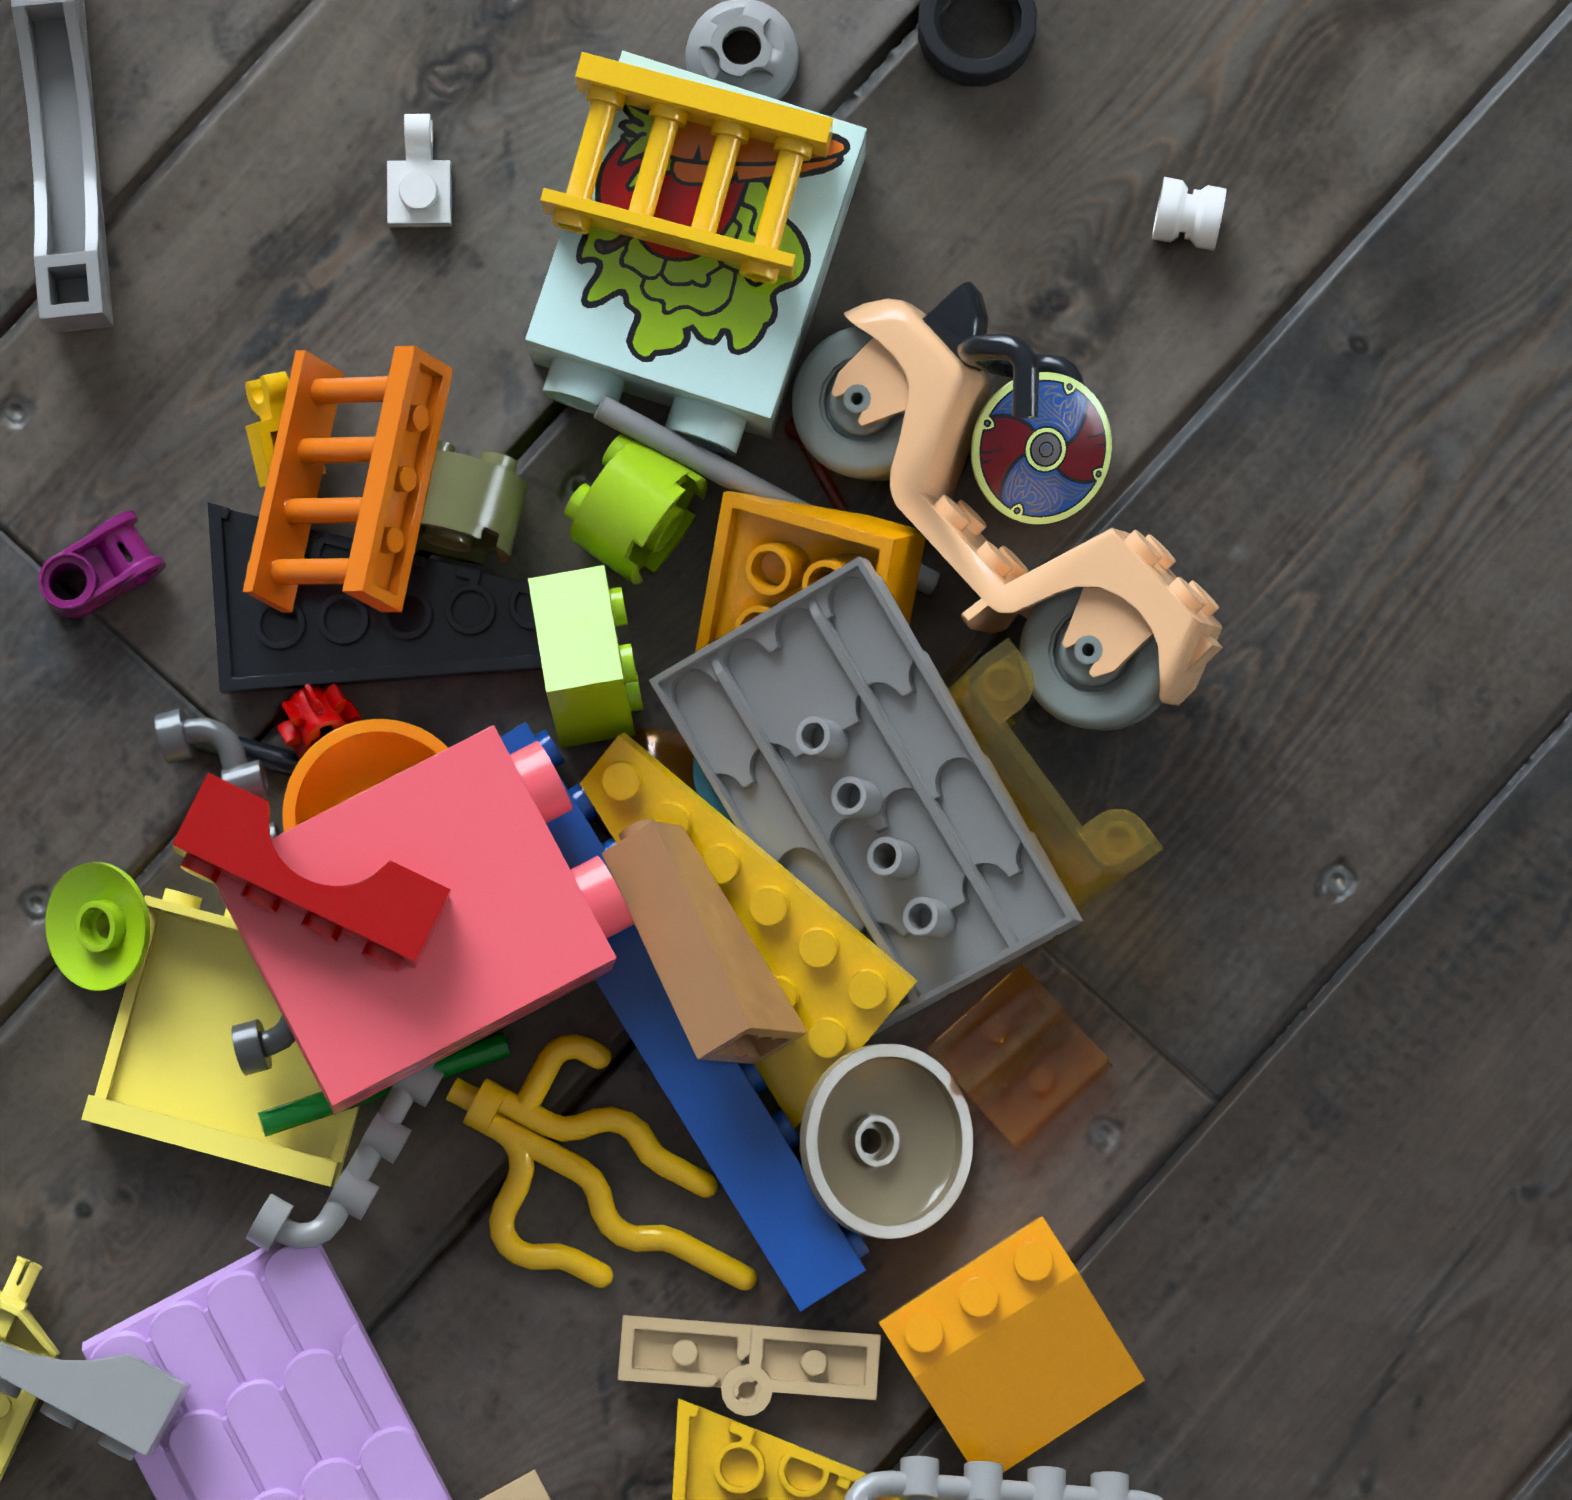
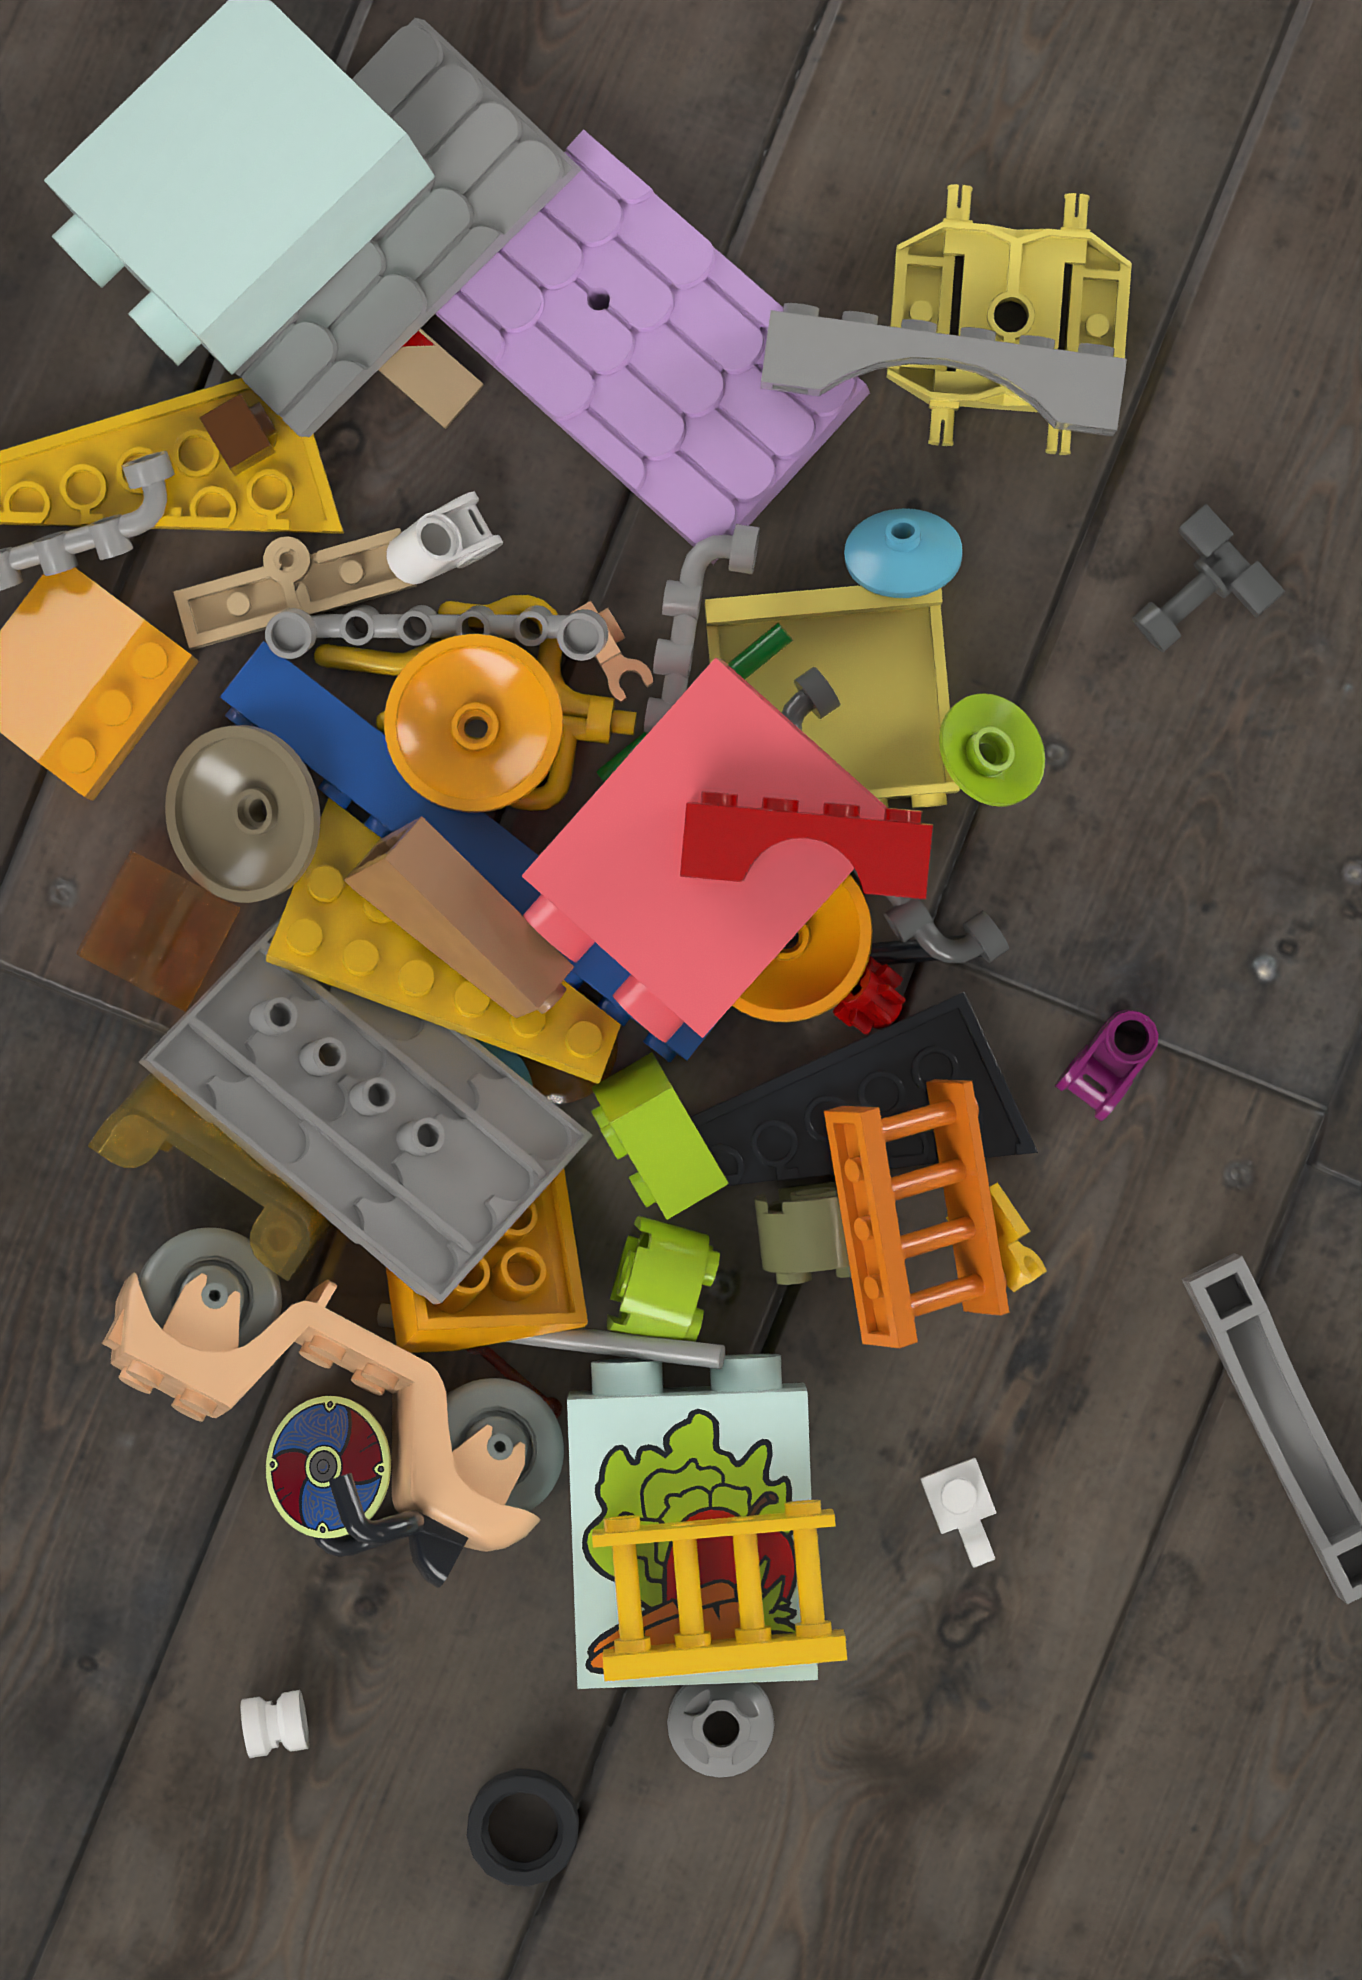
camera: 155 degrees right, 5 degrees up
(110, 1161) = (903, 553): none -> medium azure dish
(452, 1191) = (612, 660): none -> light nougat plate
(468, 1193) = (295, 631): none -> light grey bar
(580, 1349) = (442, 541): none -> white piece
(603, 1191) = (465, 682): none -> light orange dish

